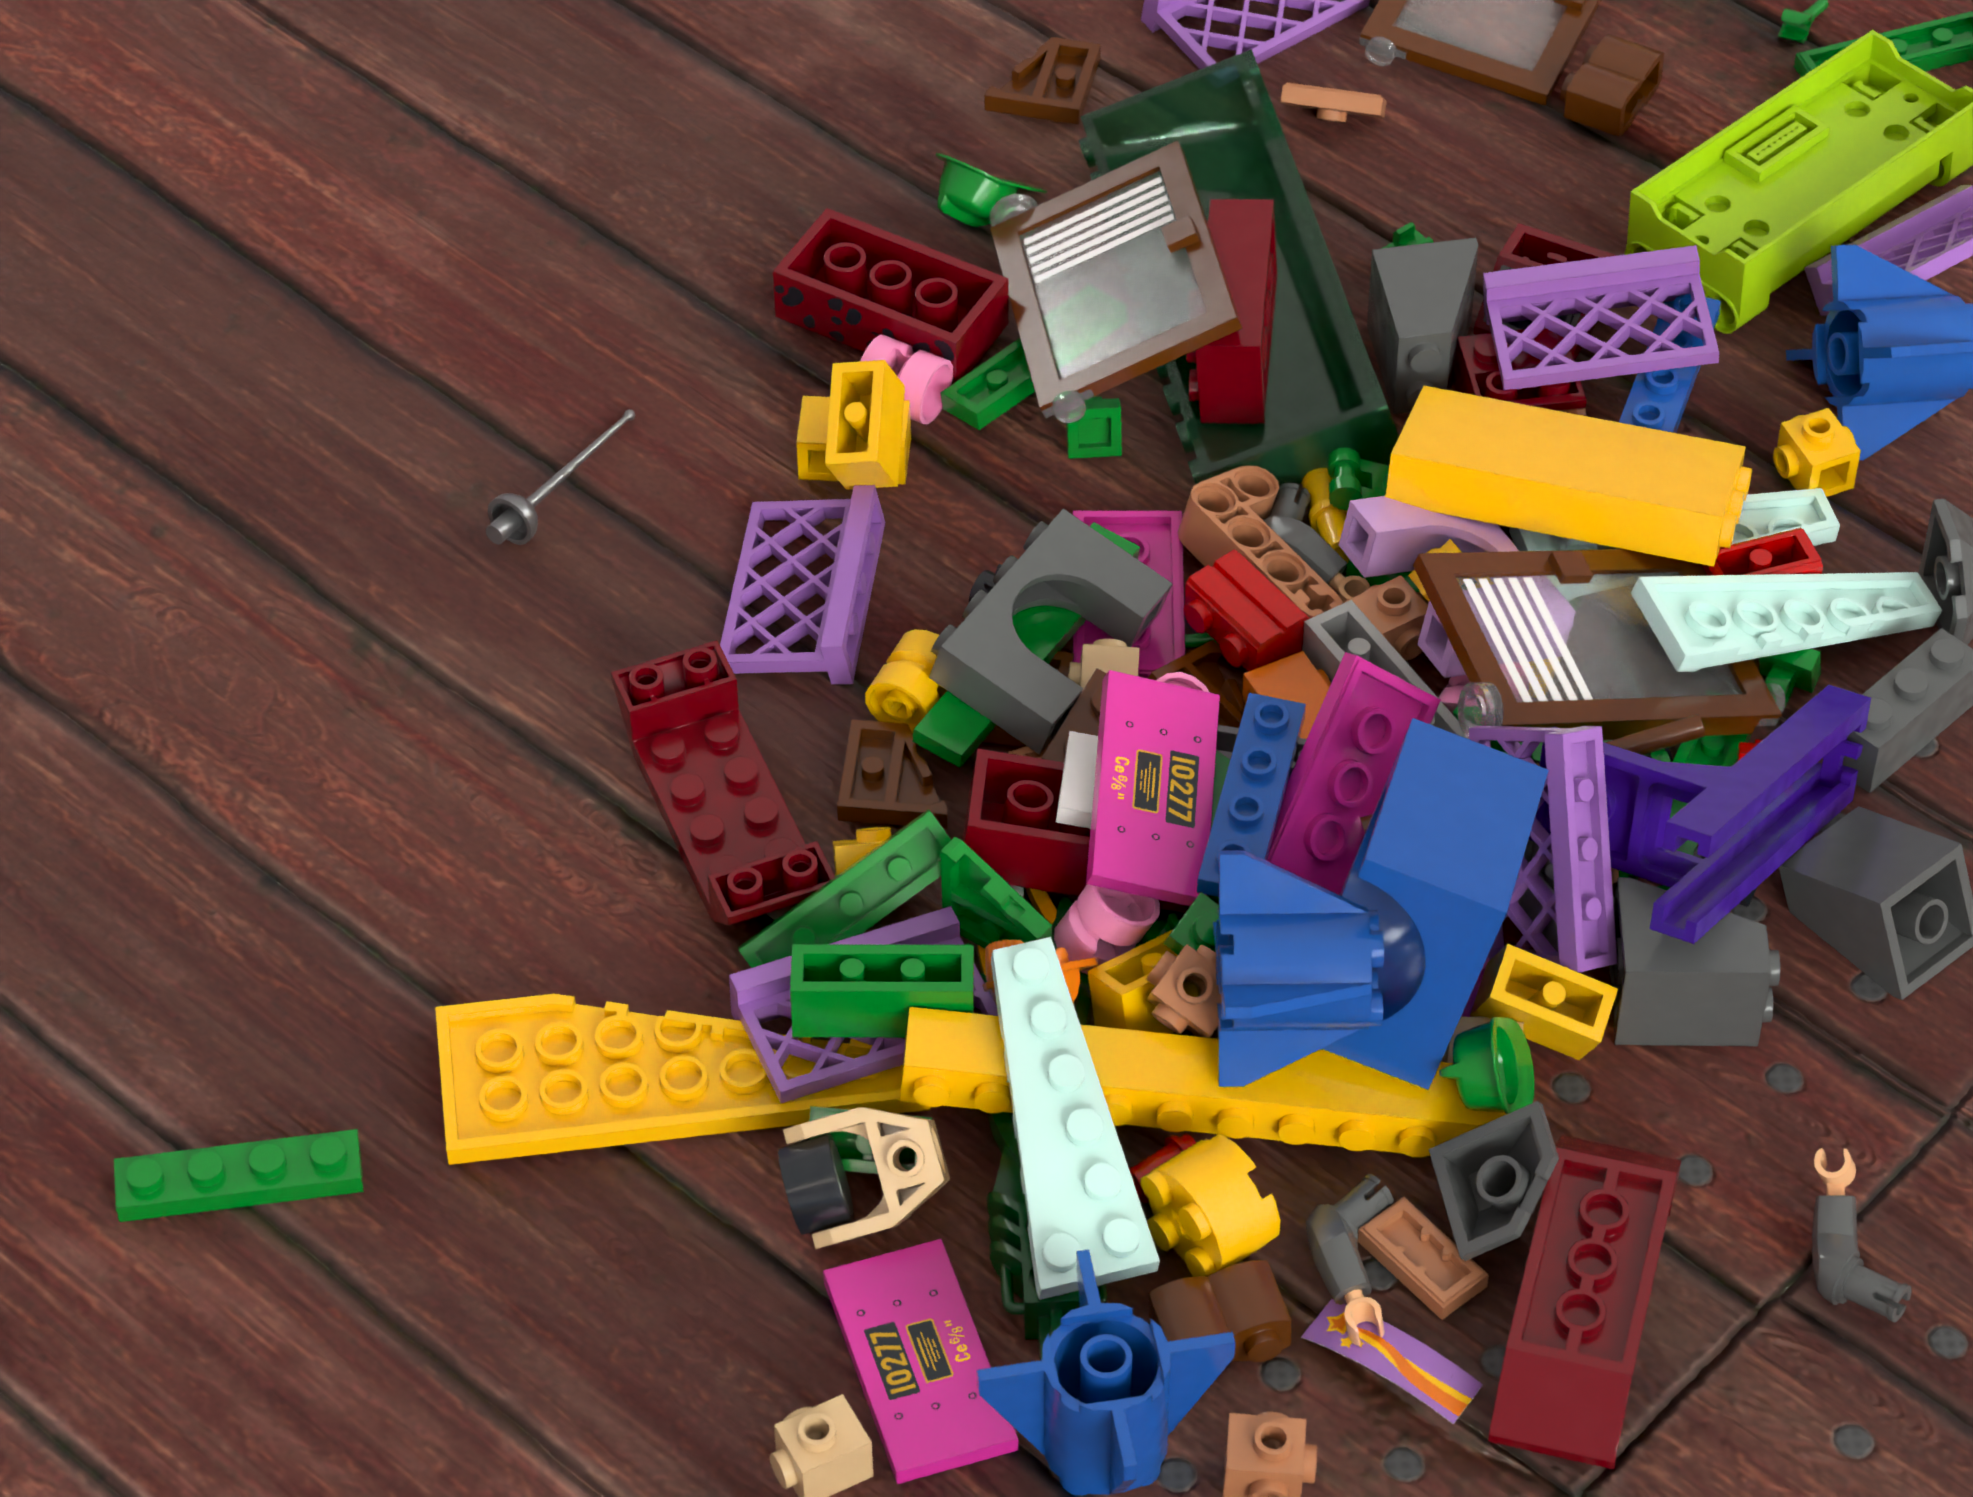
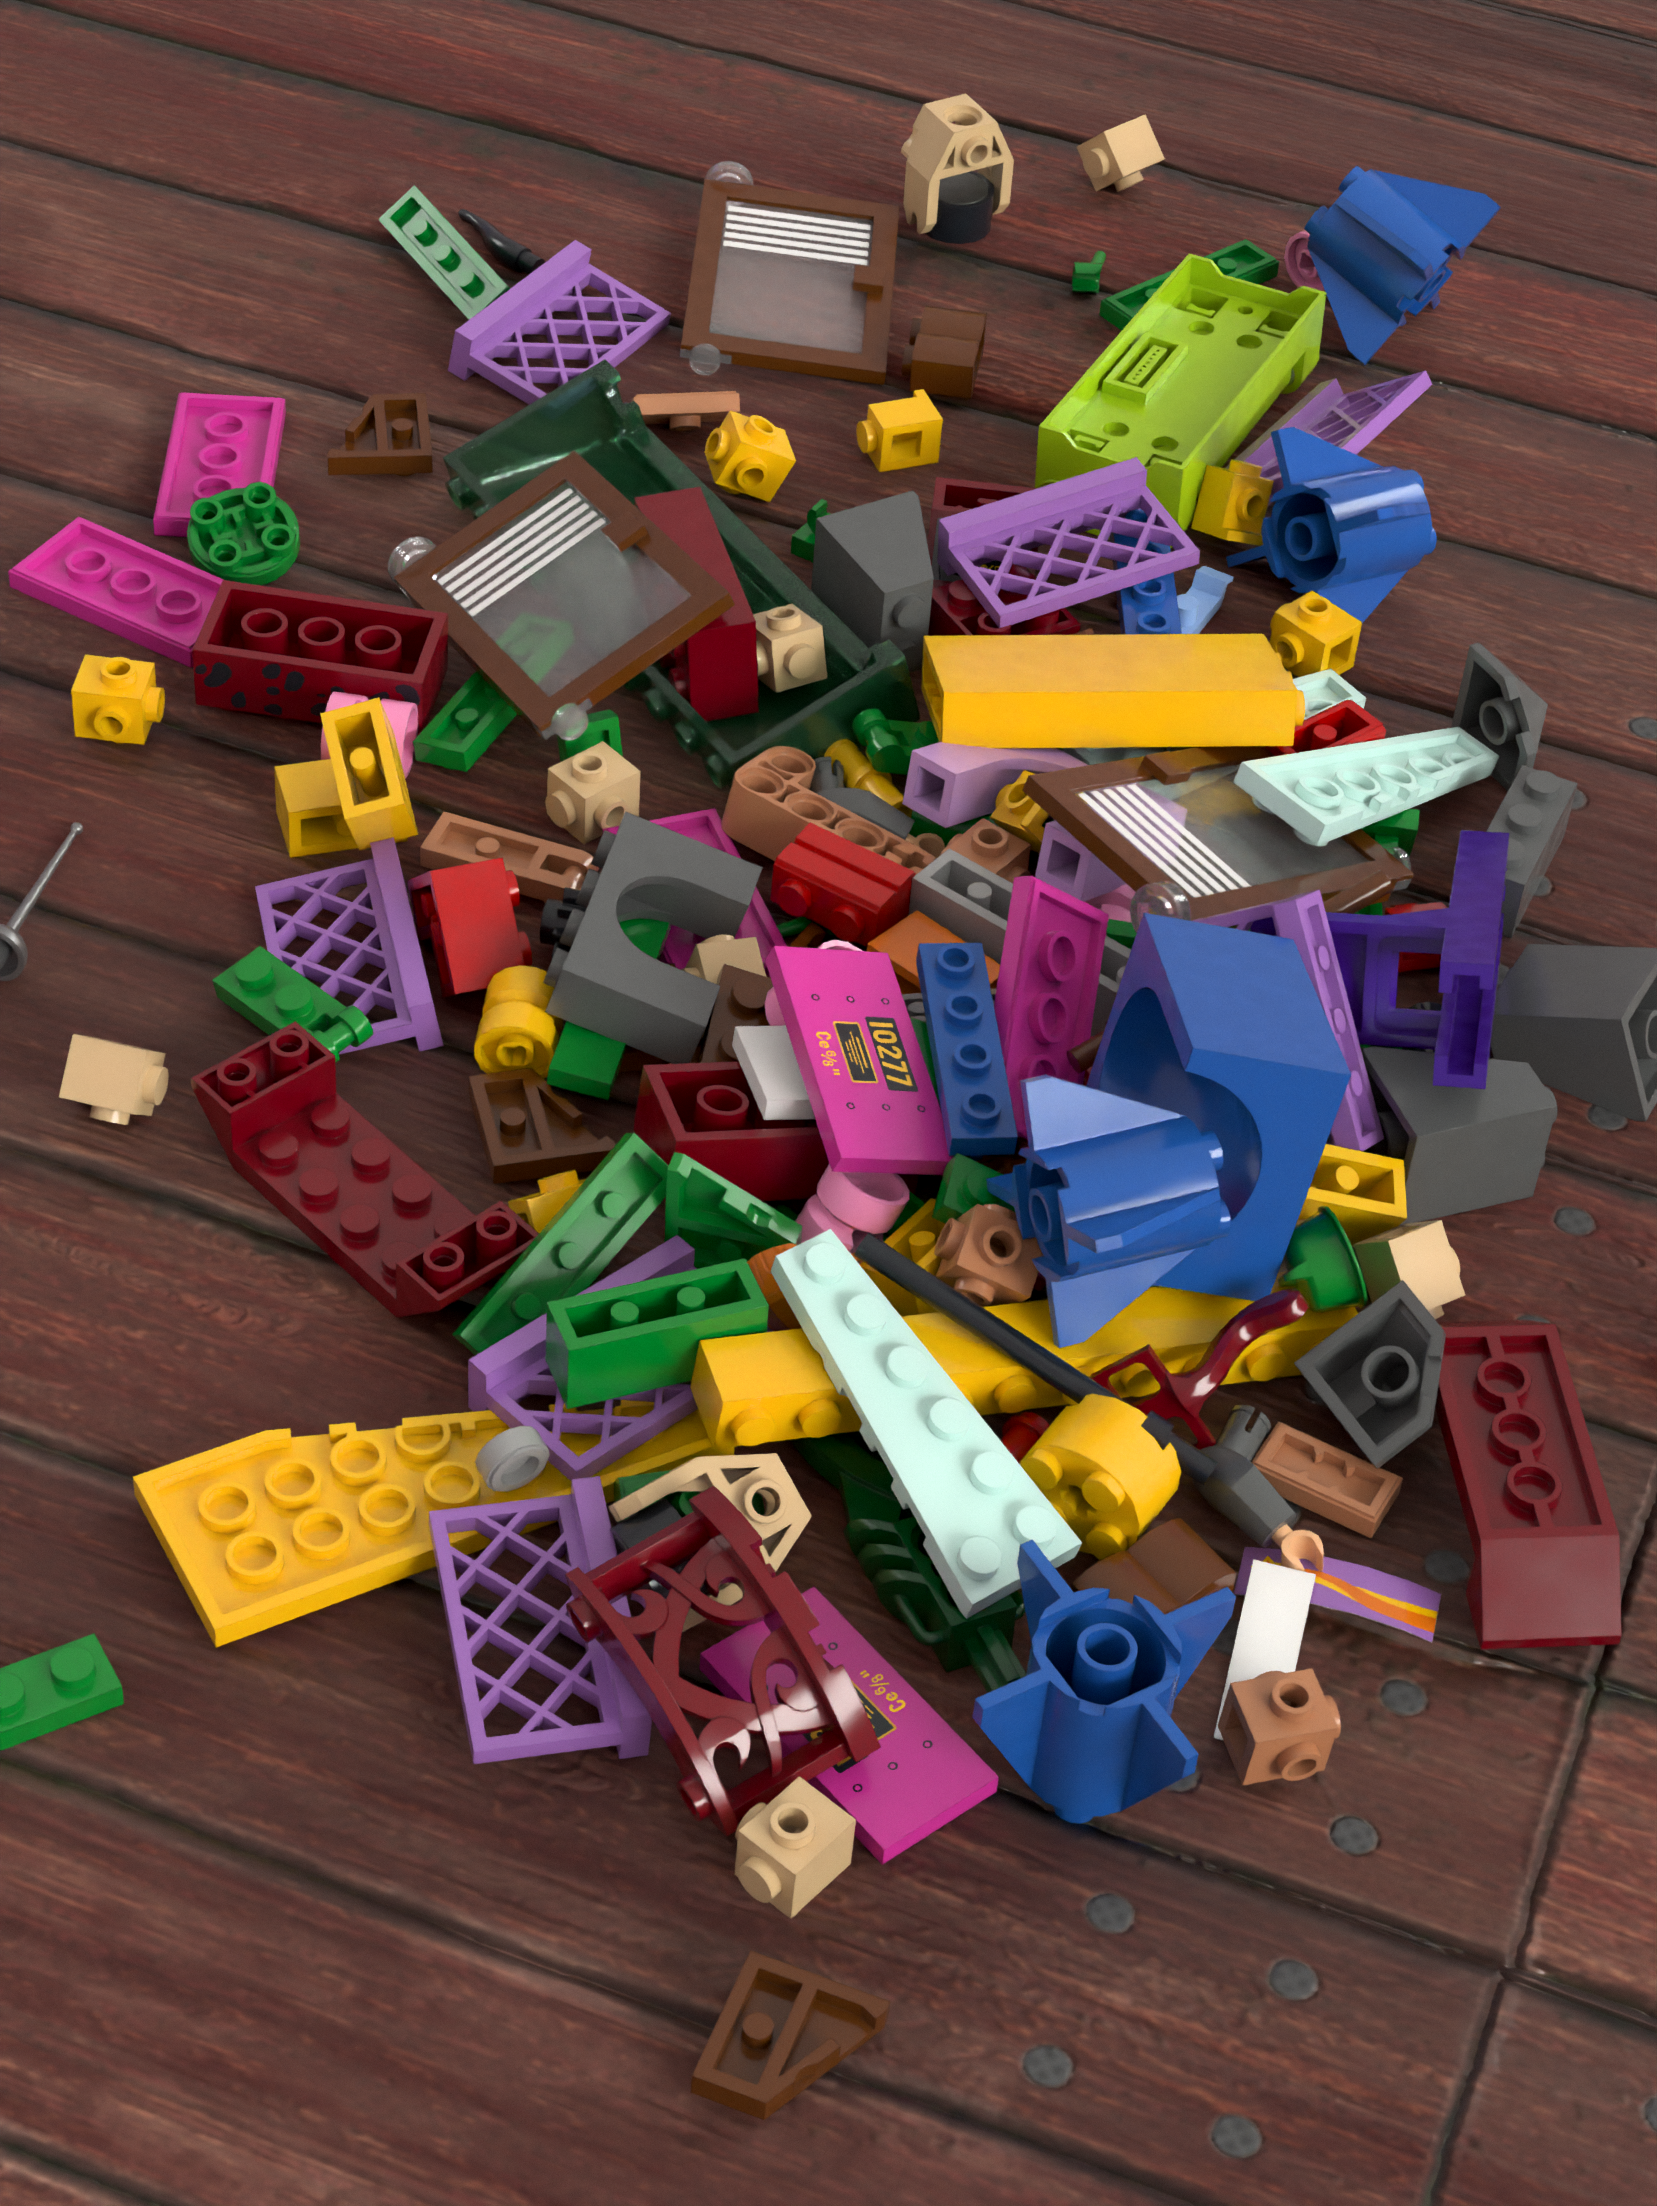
camera: 25 degrees left, 5 degrees down
(557, 655) = (114, 1078): none -> tan brick
(700, 302) = (116, 699): none -> yellow brick
(729, 616) = (277, 995): none -> green plate
(730, 1068) = (512, 1458): none -> light grey tile
(749, 1234) = (586, 1544): none -> medium lavender fence
(757, 186) = (120, 587): none -> dark pink tile
(838, 1192) = (723, 1552): none -> dark red fence
(879, 160) = (244, 535): none -> green tile
(893, 84) = (216, 448): none -> dark pink tile
(907, 580) = (470, 923): none -> red brick
(967, 517) = (538, 864): none -> nougat plate
(971, 193) = (360, 544): green piece -> none
(1076, 473) = (592, 792): none -> tan brick
(1266, 1176) = (1017, 1345): none -> black bar
(1304, 367) = (789, 648): none -> tan brick
(1313, 1371) = (1269, 1623): none -> white sticker
(1315, 1151) = (1186, 1391): none -> dark red piece
(1366, 163) = (749, 456): none -> yellow brick
(1527, 164) = (901, 433): none -> yellow brick
(1588, 1091) = (1416, 1255): none -> tan brick
(1725, 401) = (1202, 599): none -> light blue piece
(1799, 298) = (1233, 502): none -> yellow brick

